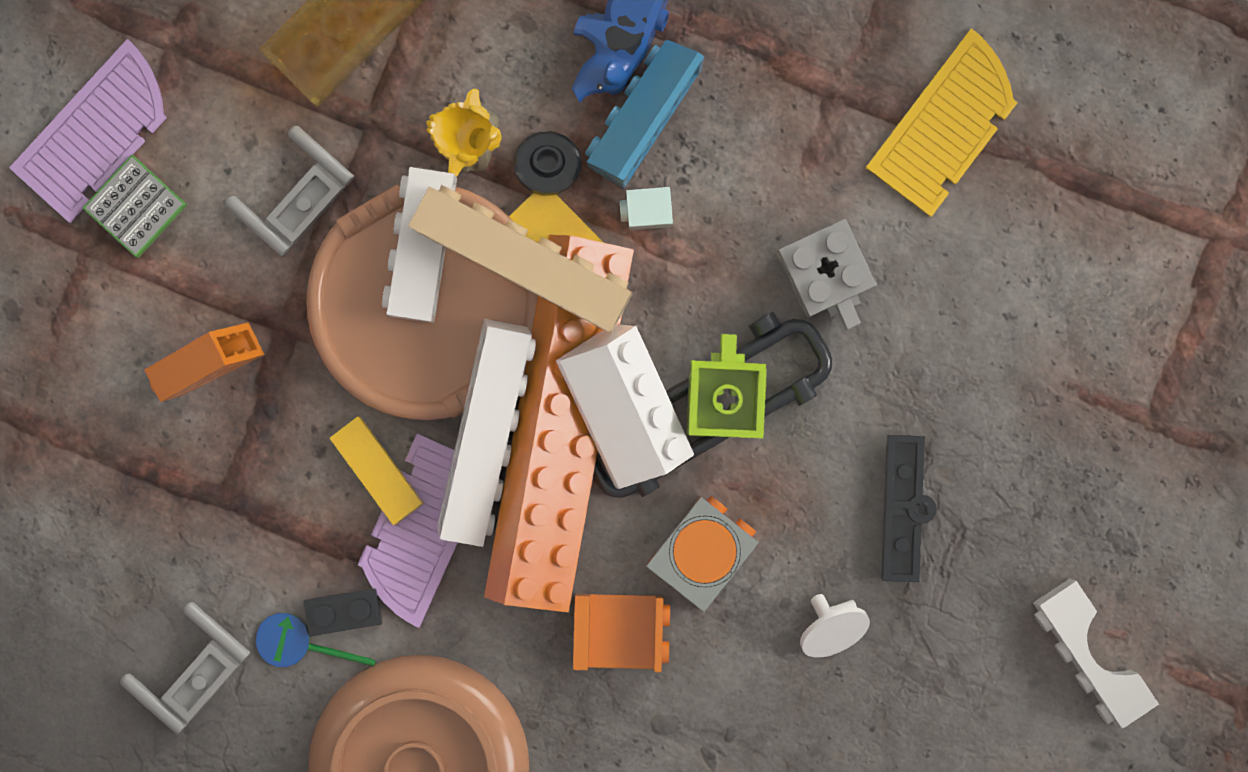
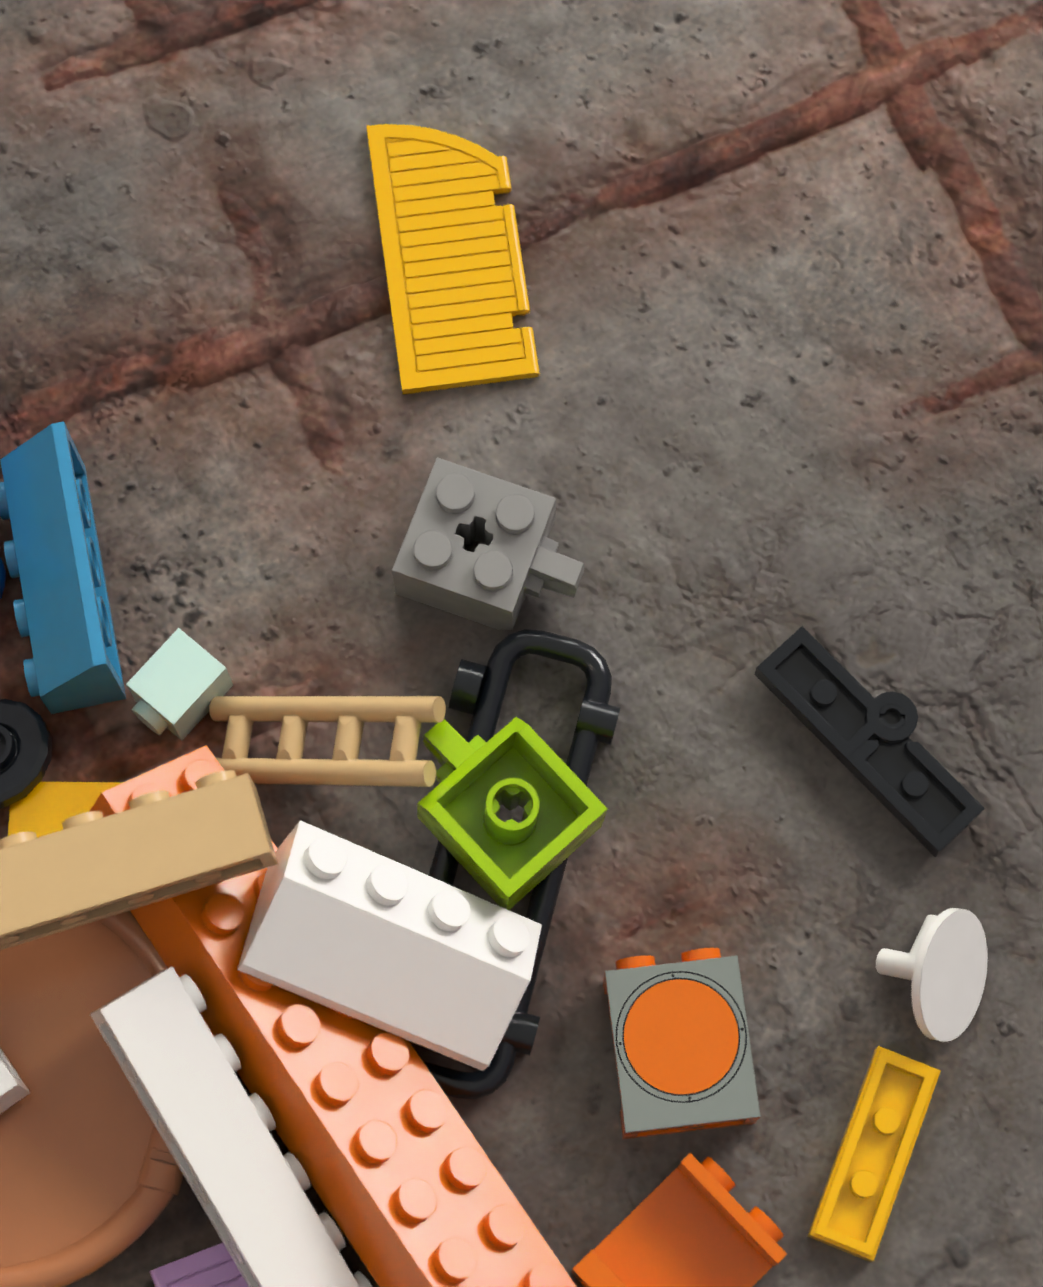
camera: 50 degrees left, 15 degrees down
(703, 294) = (345, 766): none -> tan bar
(736, 667) = (874, 1154): none -> yellow tile

